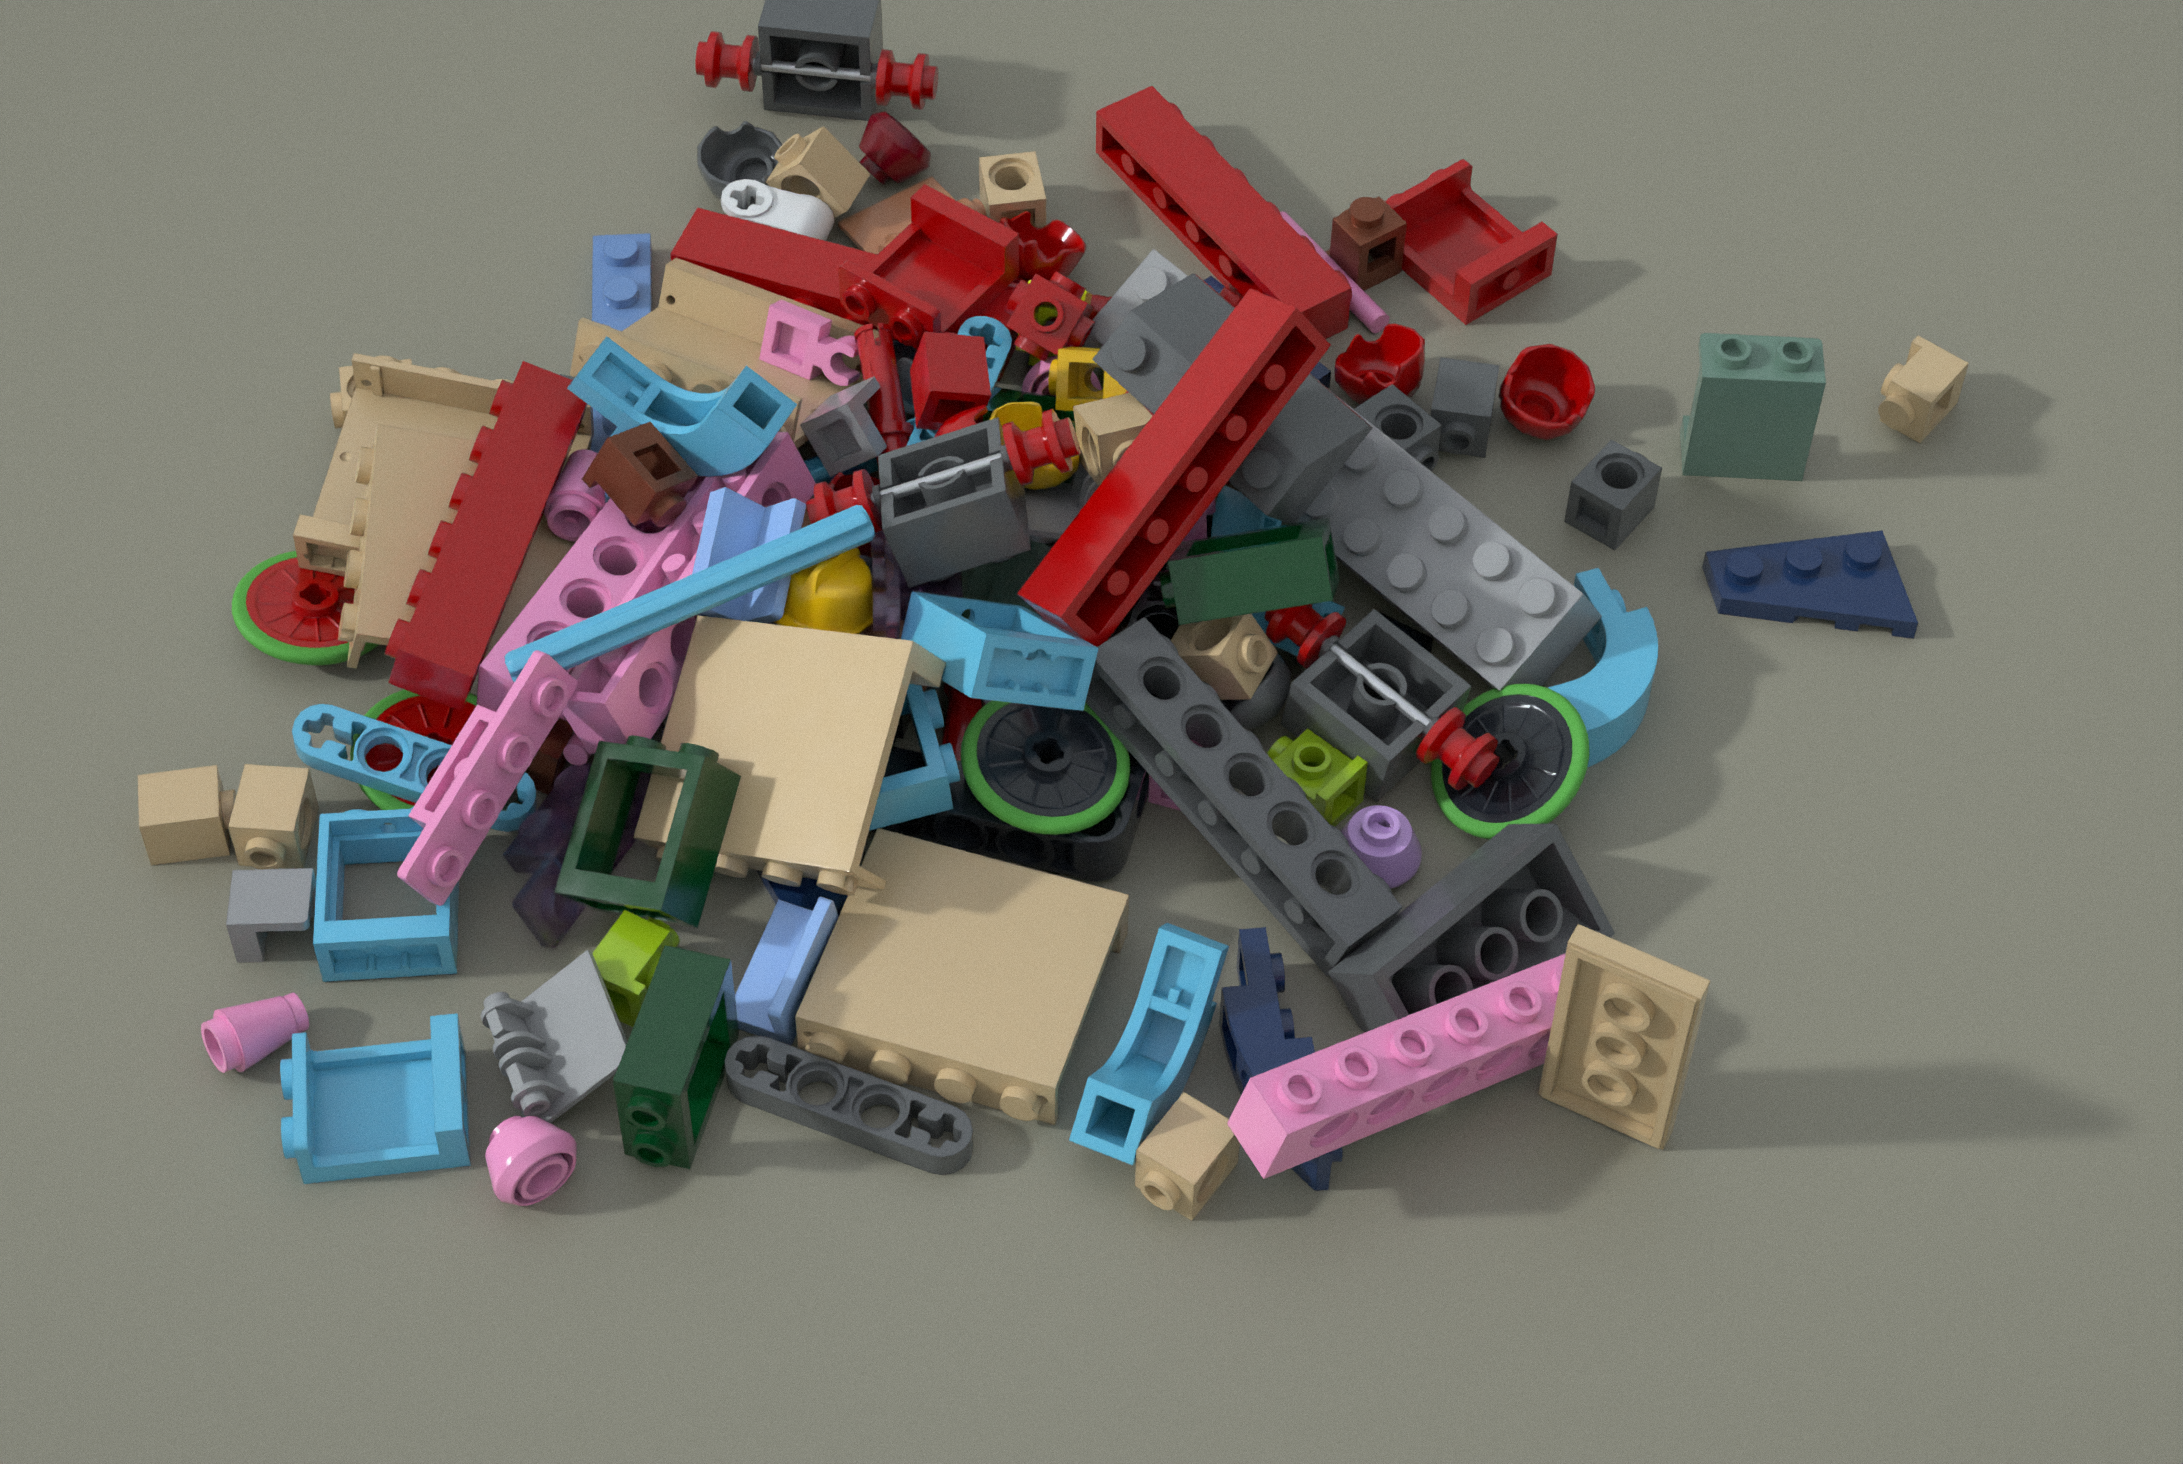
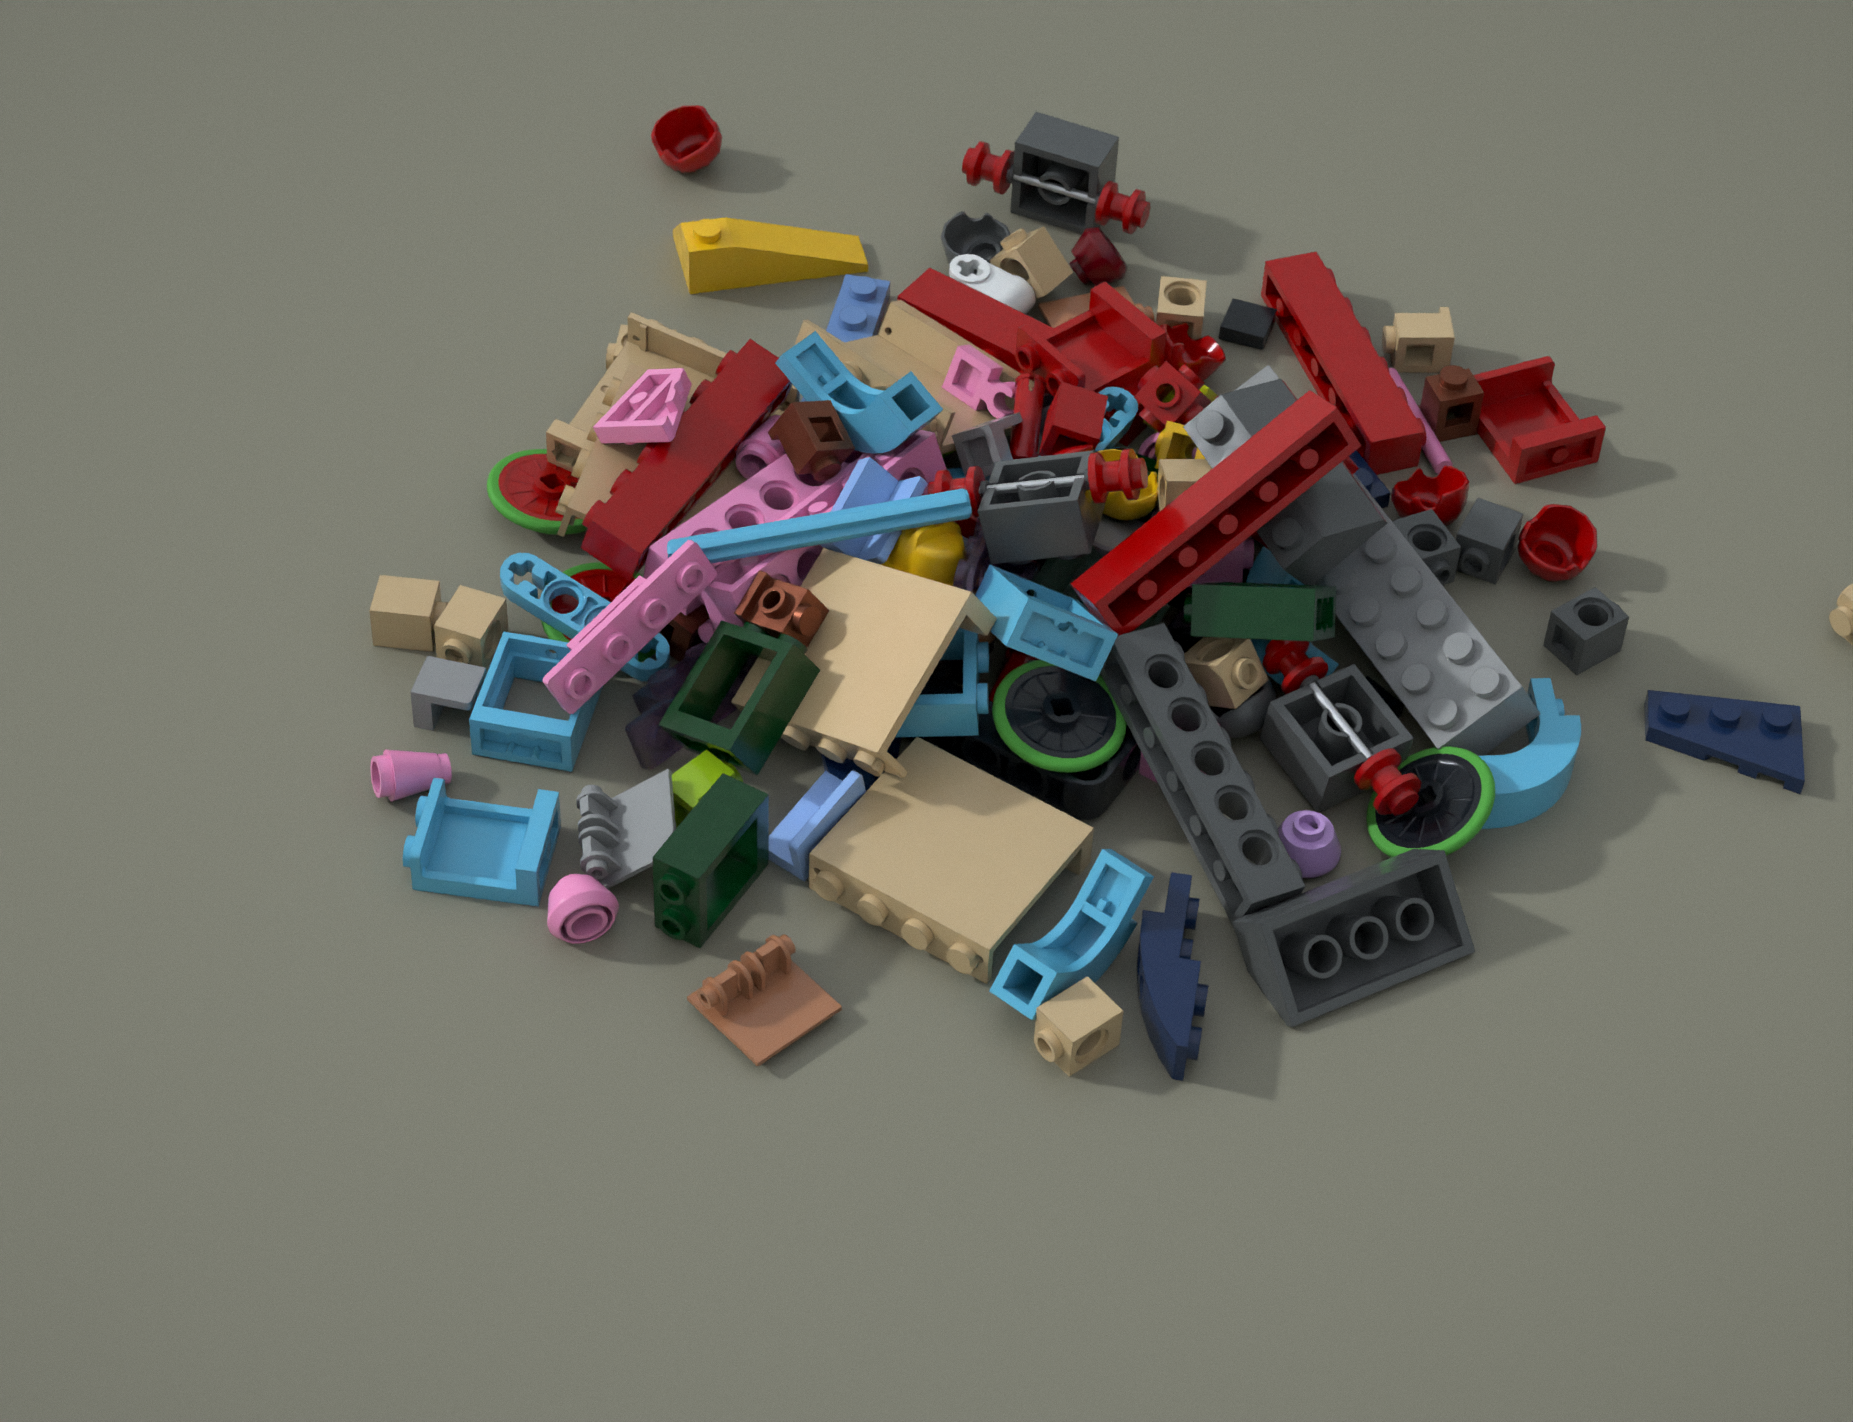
camera: 15 degrees right, 5 degrees down
(342, 101) = (687, 138): none -> red hair
(423, 484) = (647, 410): none -> bright pink wing
(474, 233) = (751, 253): none -> yellow wedge
(671, 709) = (782, 608): none -> copper brick
(795, 1222) = (764, 1001): none -> nougat hinge
(843, 1113) = (838, 925): dark grey beam -> none
(1093, 192) = (1247, 324): none -> black tile
(1304, 171) = (1419, 341): none -> tan brick
(1325, 774) = (1277, 781): lime brick -> none
(1397, 1070) = (1278, 996): bright pink brick -> none
(1622, 1036) = (1437, 1009): tan tile -> none
(1753, 407) = (1717, 586): sand green panel -> none

